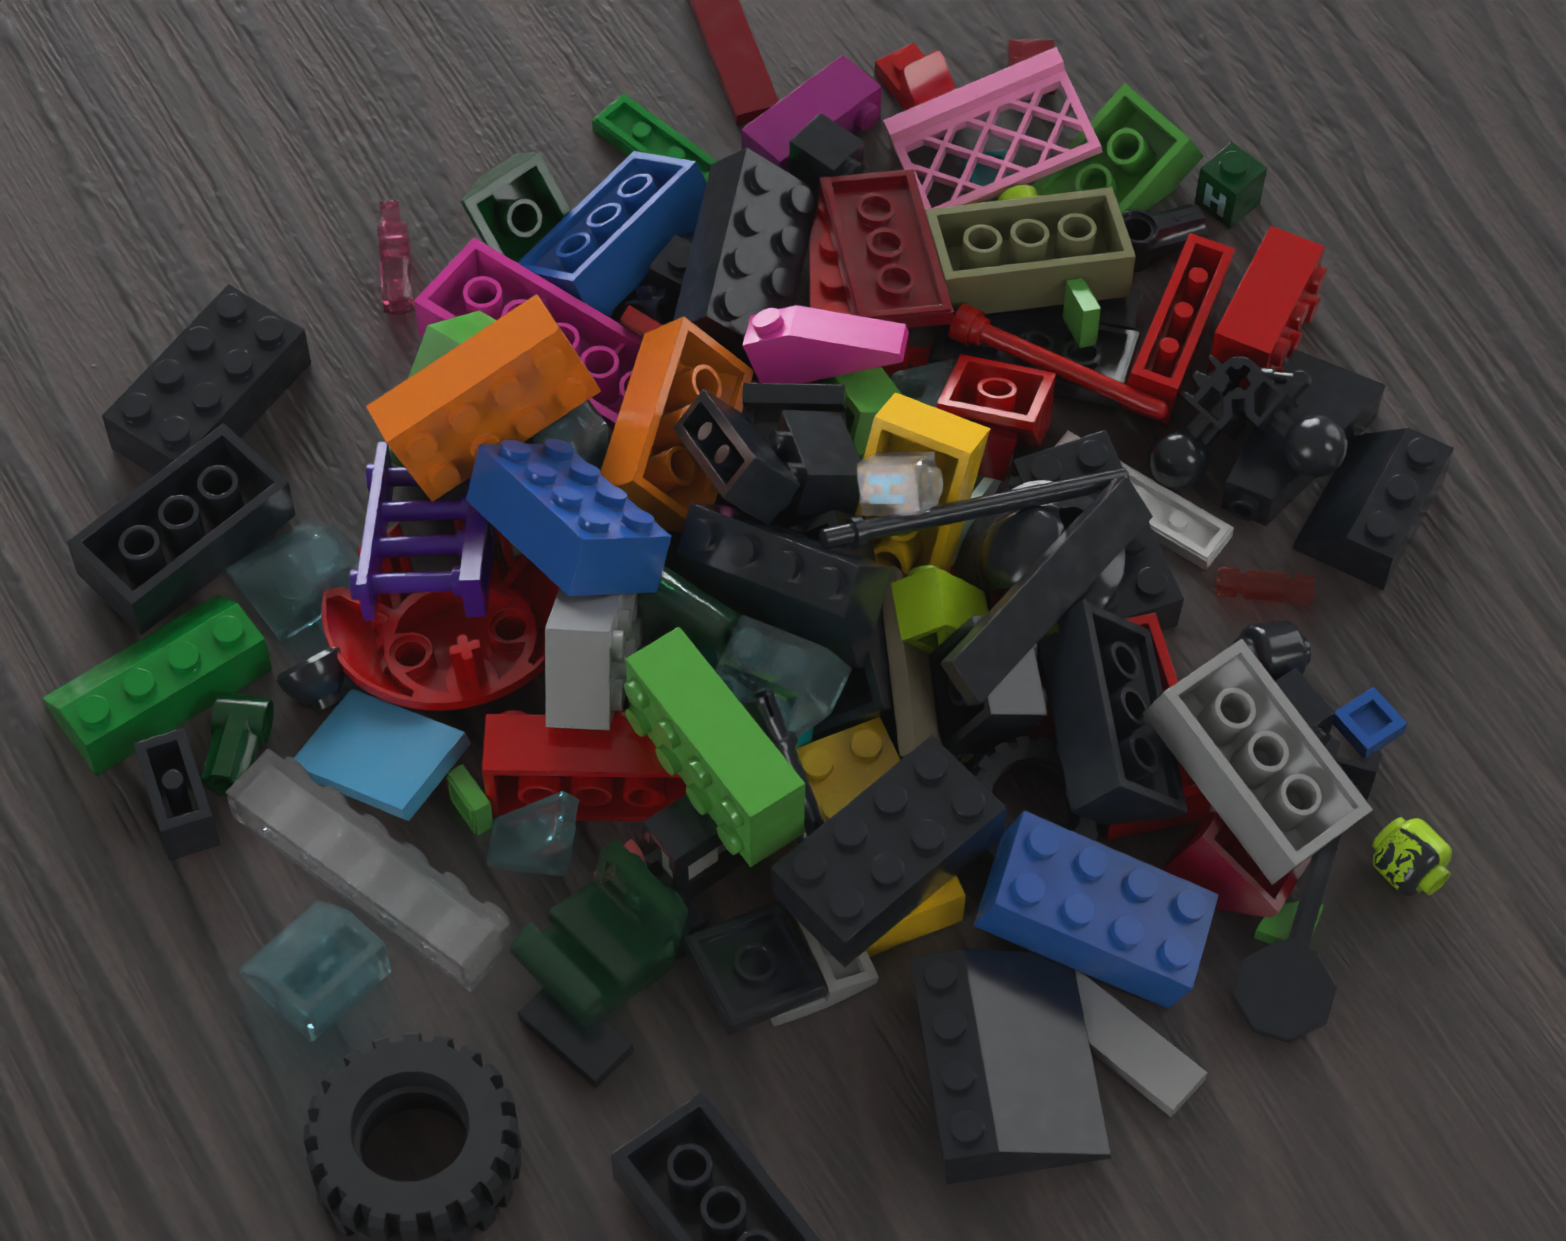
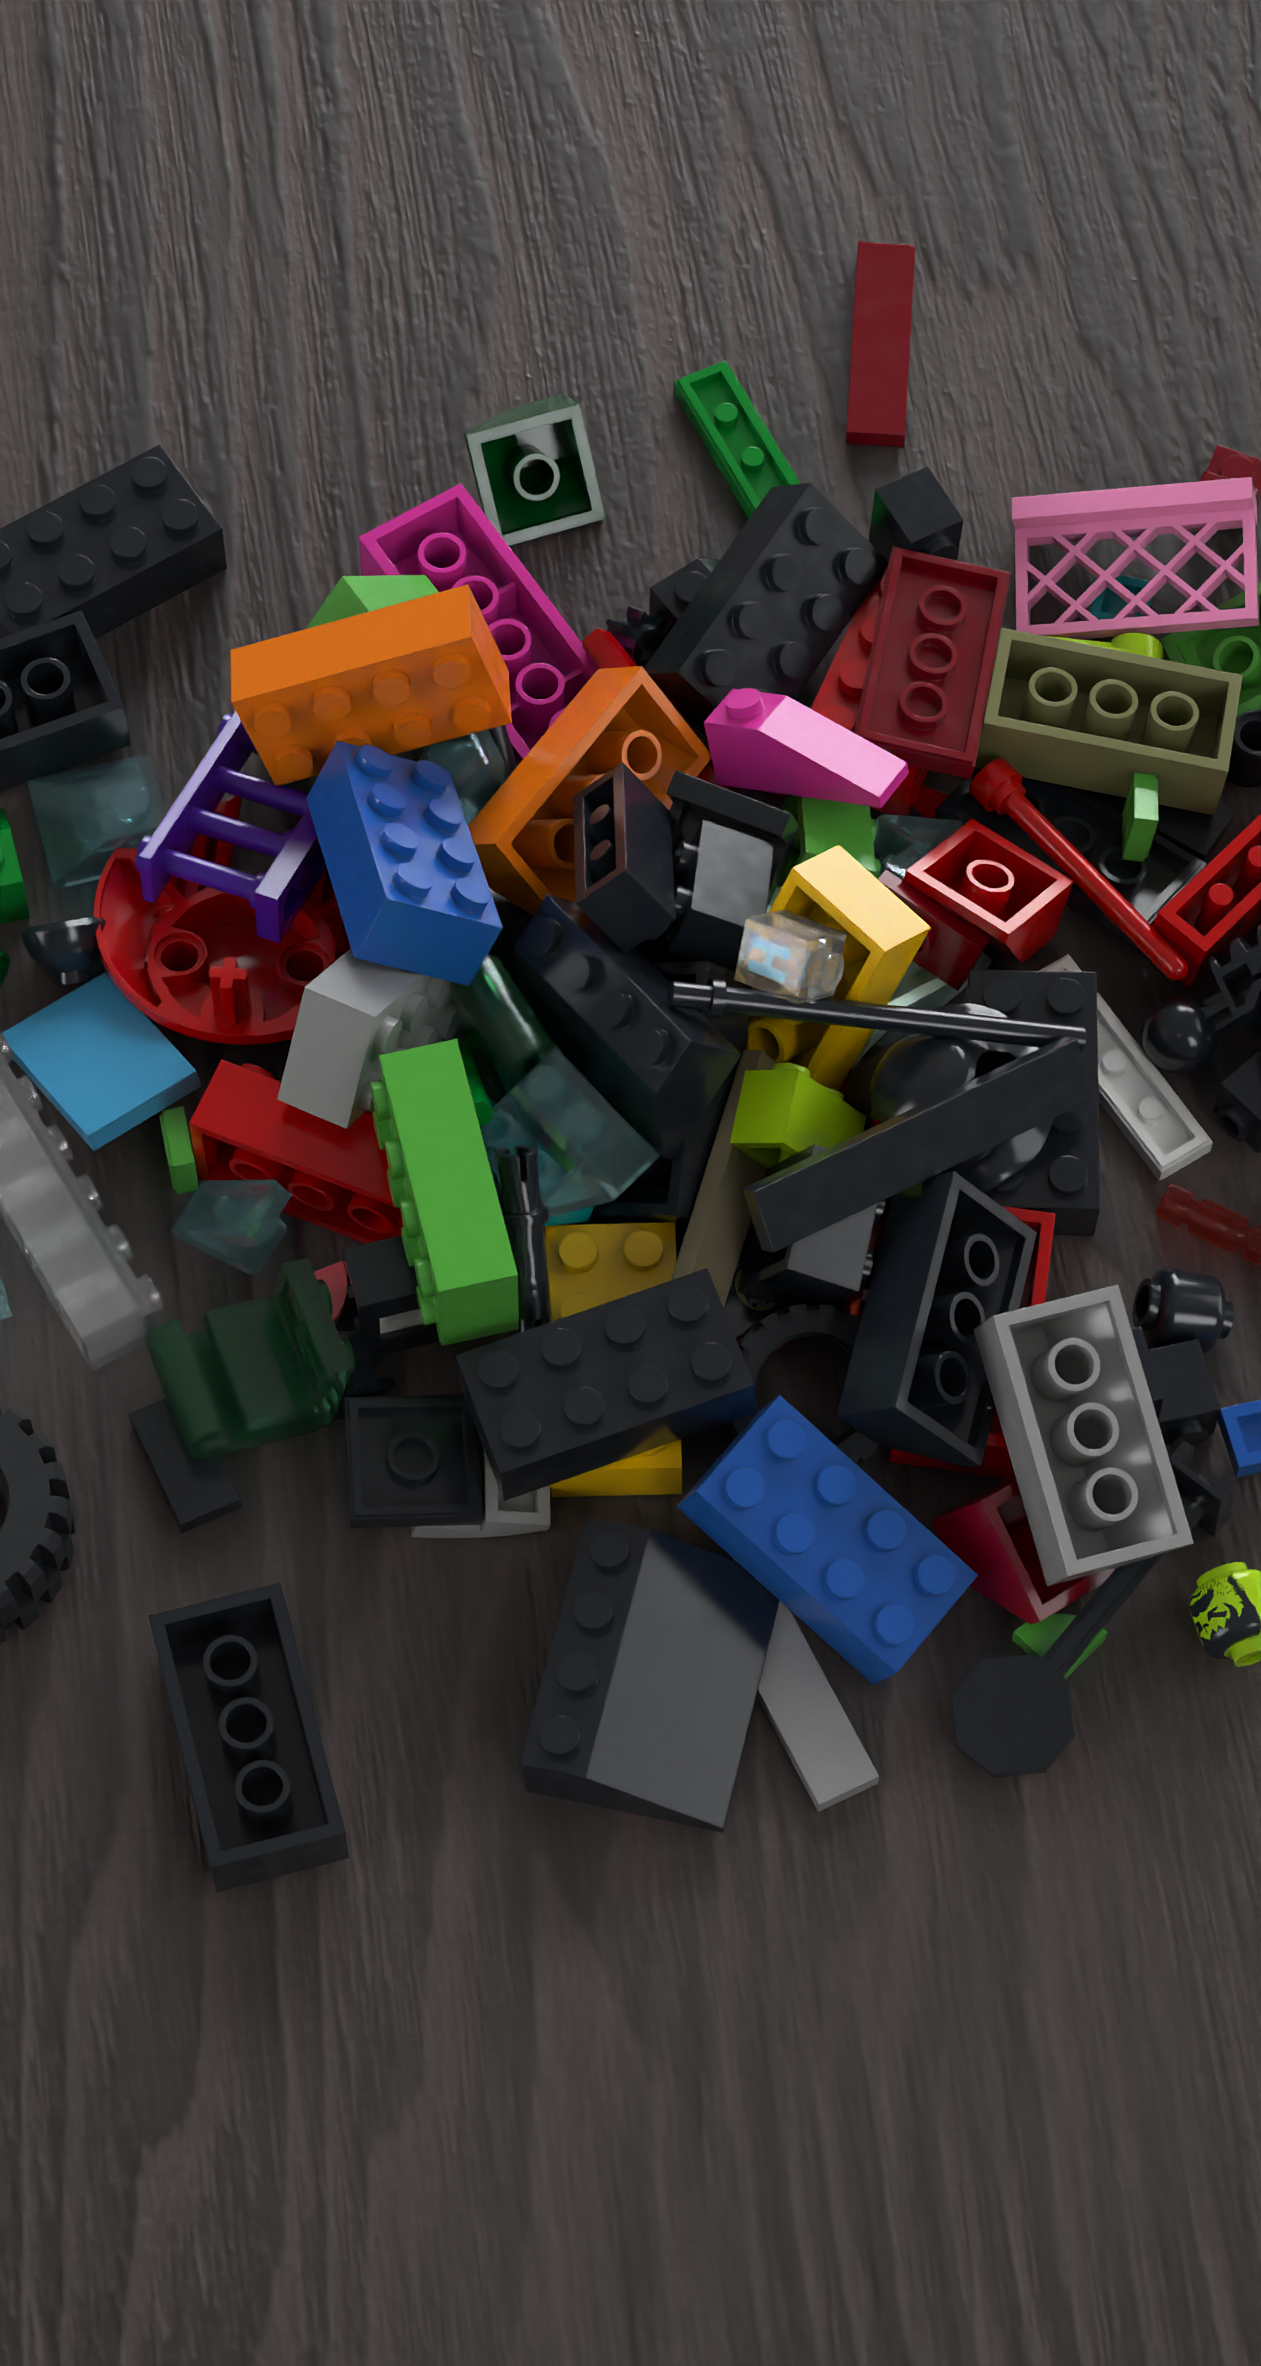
camera: 20 degrees right, 5 degrees up
(395, 260) = (374, 469): clear pink bar -> none
(620, 229) = (635, 531): blue slope -> none
(837, 91) = (969, 453): magenta brick -> none
(913, 76) = (1082, 453): red slope -> none

